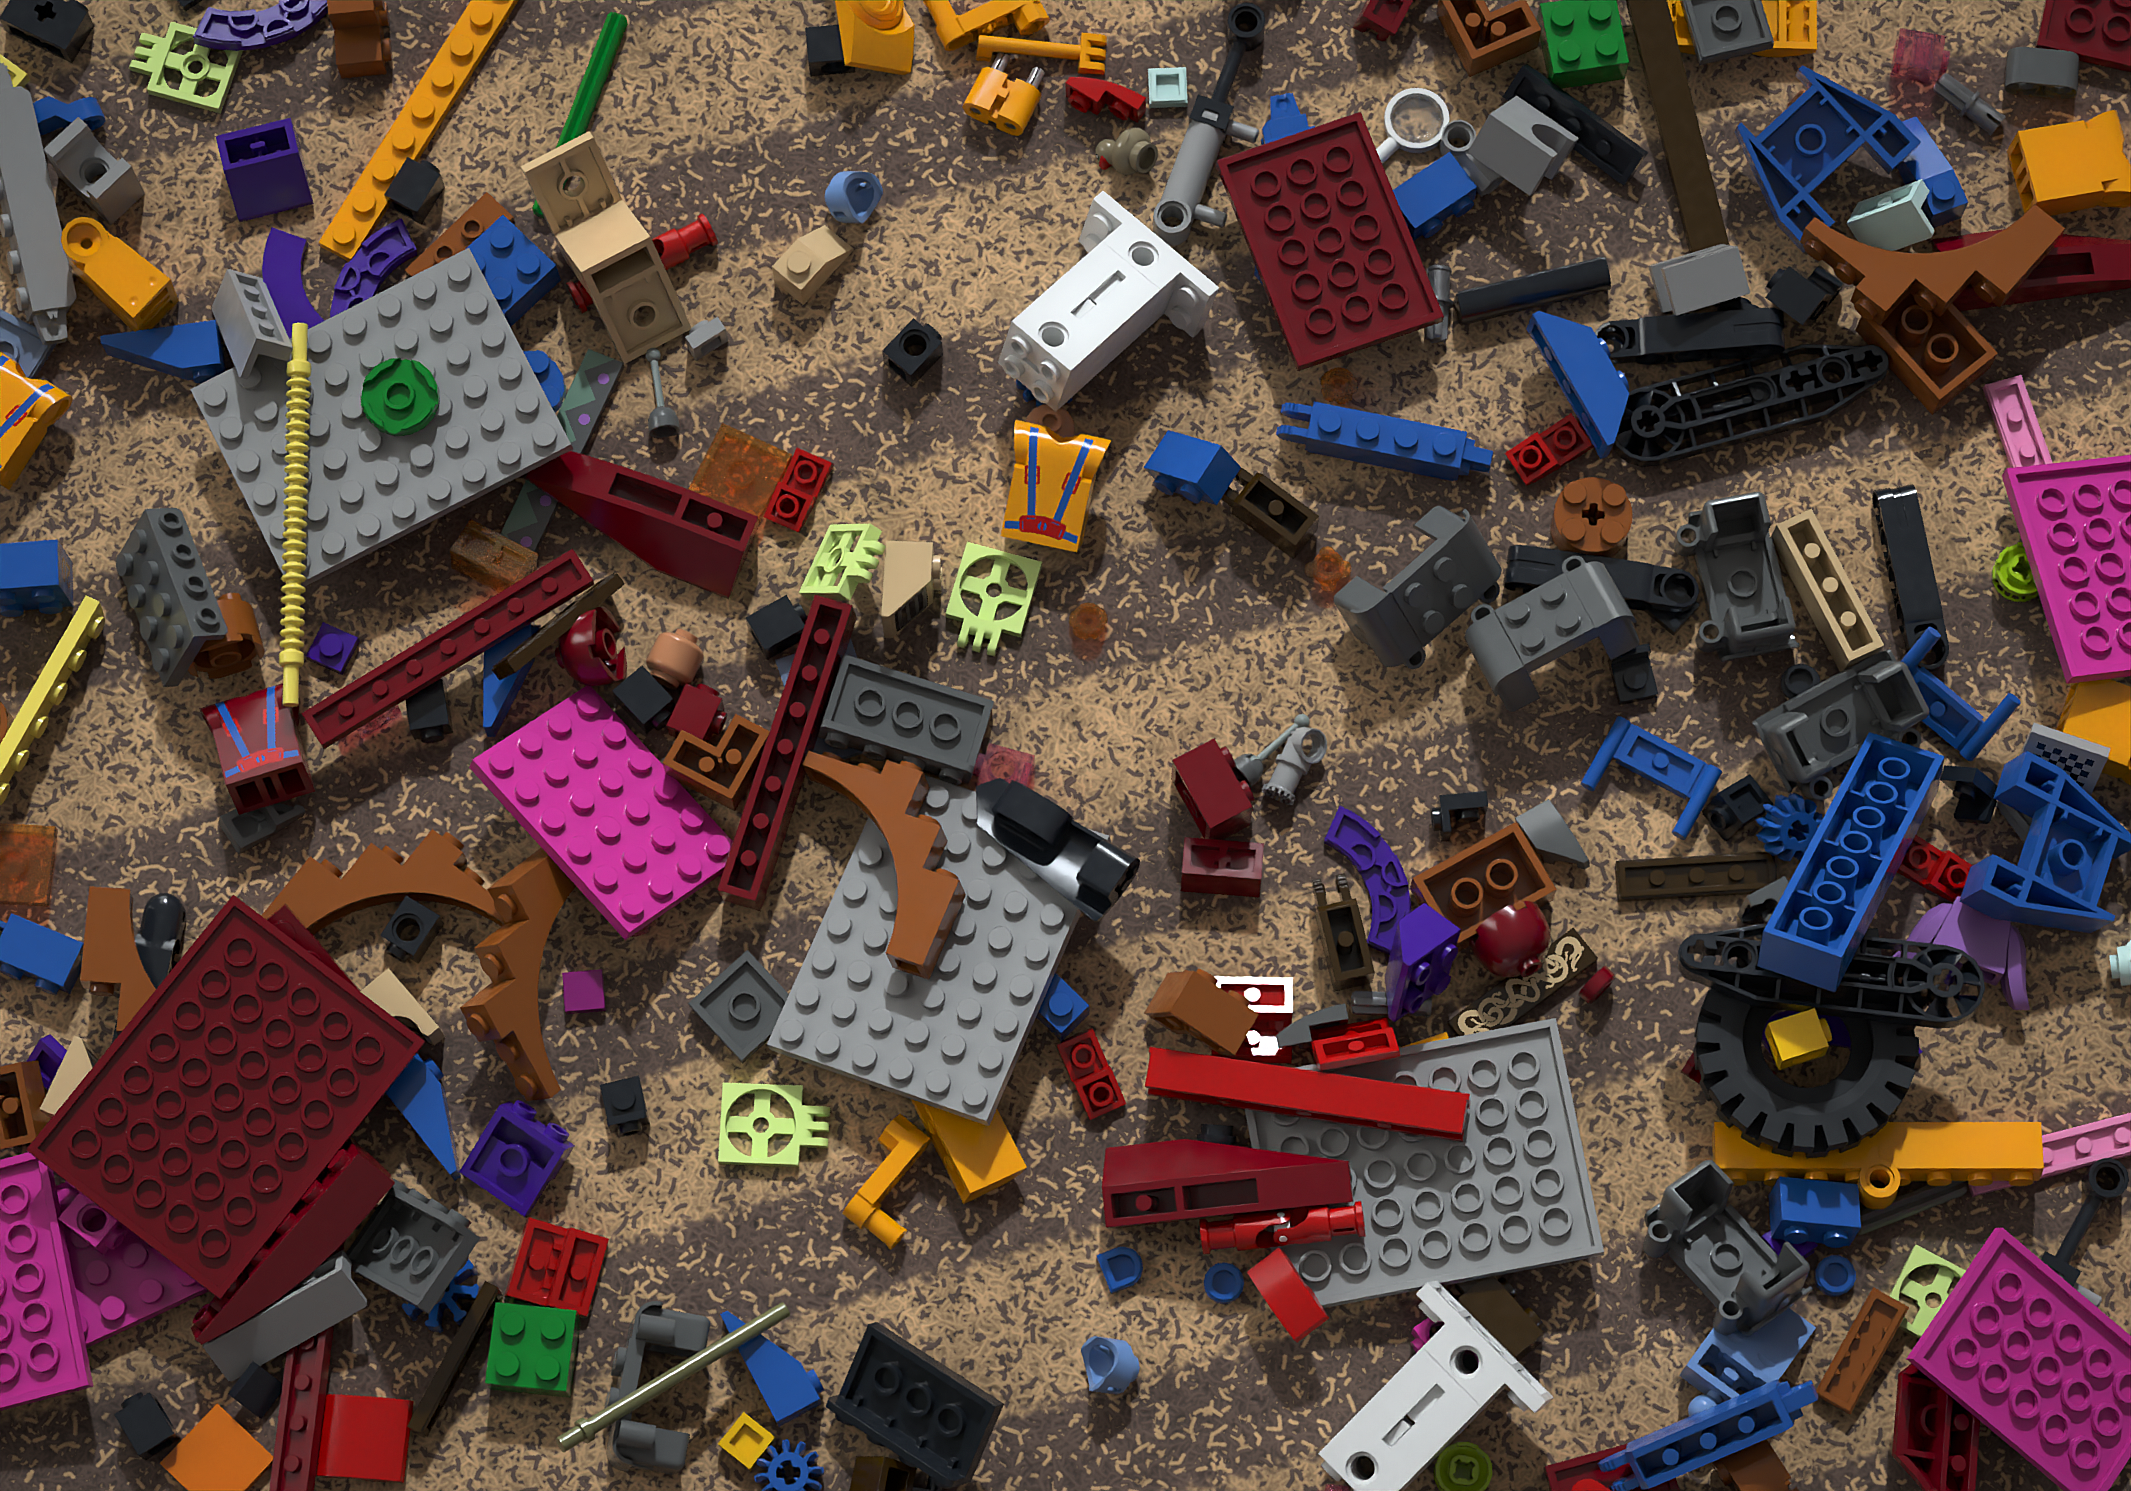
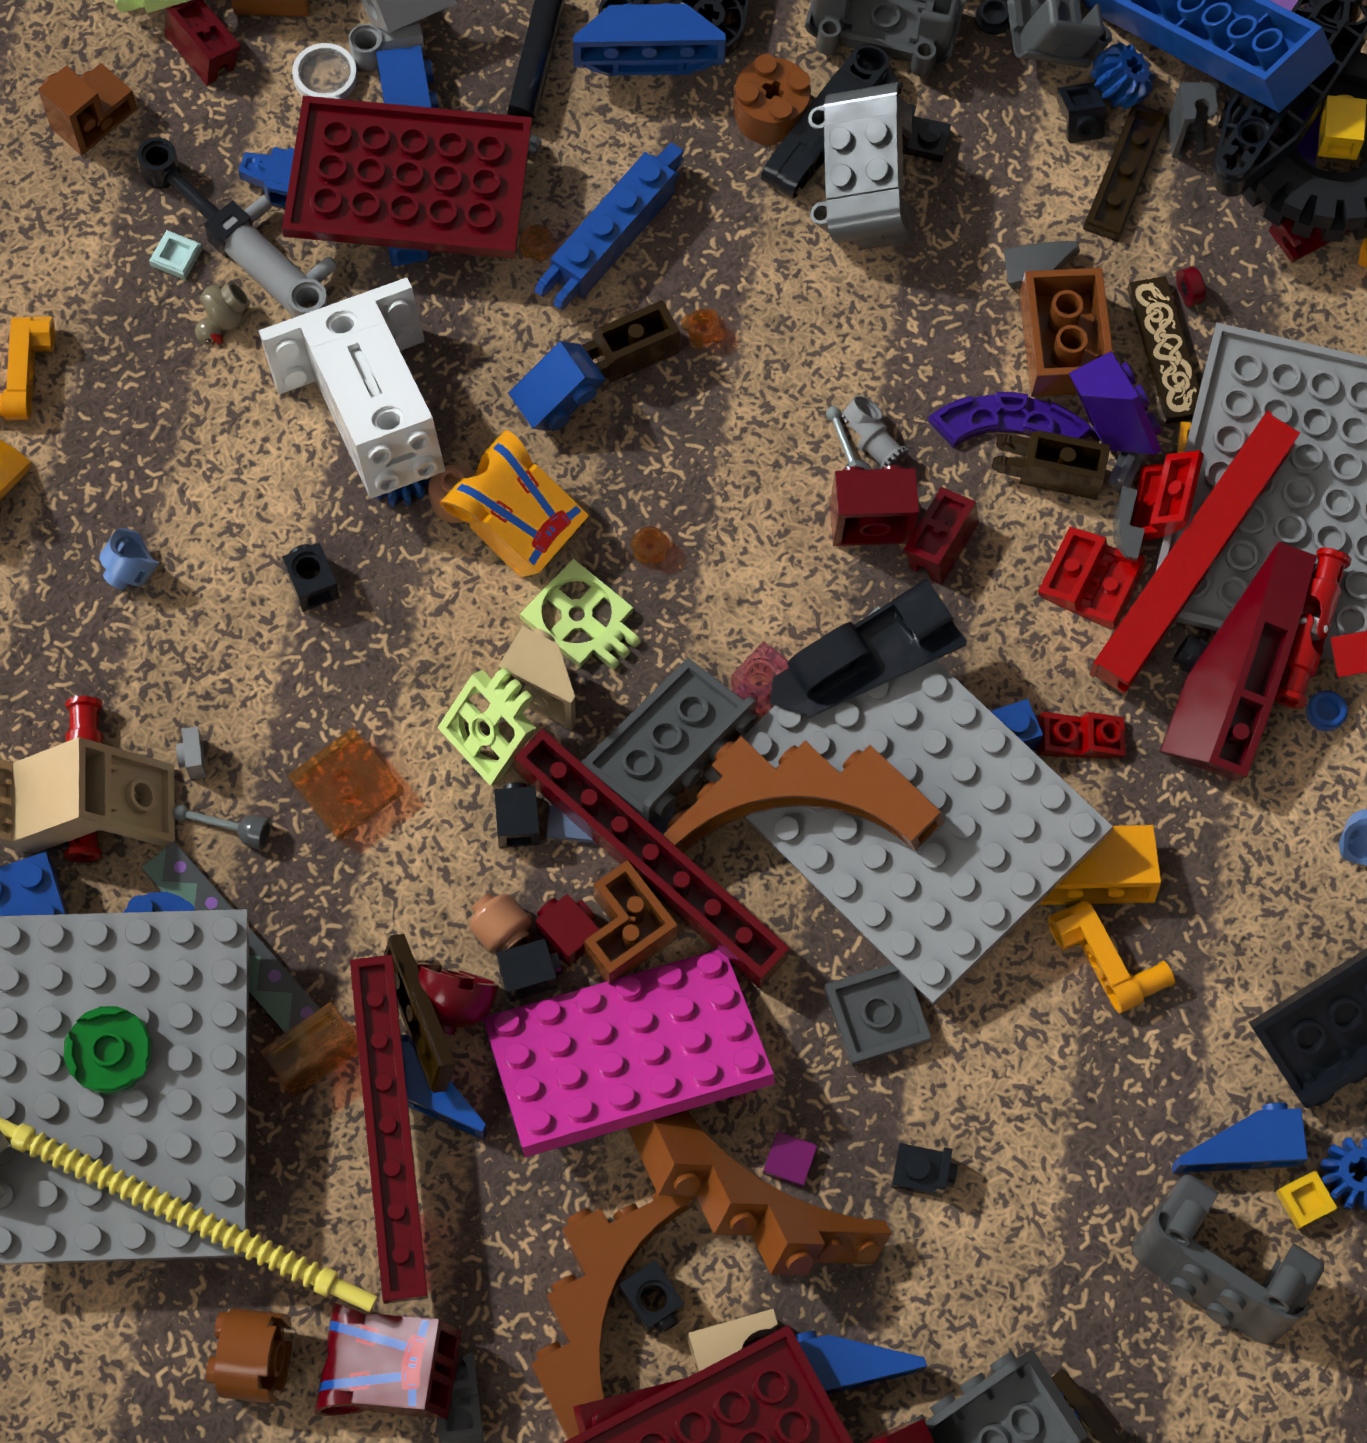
camera: 70 degrees left, 5 degrees down
(169, 592) = (181, 1384): dark grey bracket -> none
(332, 648) = (317, 1246): dark purple plate -> none
(430, 713) = (438, 1181): black brick -> none
(517, 1156) = (931, 1294): dark purple plate -> none
(533, 1349) = (1135, 1364): green brick -> none
(556, 1266) = (1055, 1308): red slope -> none
(586, 1429) = (1267, 1330): olive bar -> none
(654, 519) = (353, 877): dark red wedge -> none
(798, 490) = (389, 739): red slope -> none
(800, 1126) = (1015, 1017): yellowish green piece -> none
(810, 262) = (172, 629): tan slope -> none
(1002, 100) = (107, 393): light orange piece -> none
(1081, 52) = (98, 309): light orange hinge -> none
(1094, 93) = (146, 316): red slope -> none
(1121, 1268) = (1275, 792): blue tile -> none
(1195, 1006) = (1074, 606): dark orange brick -> none
(1425, 593) = (778, 222): dark grey container -> none
(1464, 806) = (978, 331): black bracket -> none
(1513, 941) = (1133, 324): dark red cylinder -> none
(1549, 450) = (686, 107): red slope -> none
(1658, 763) = (1016, 150): blue plate -> none

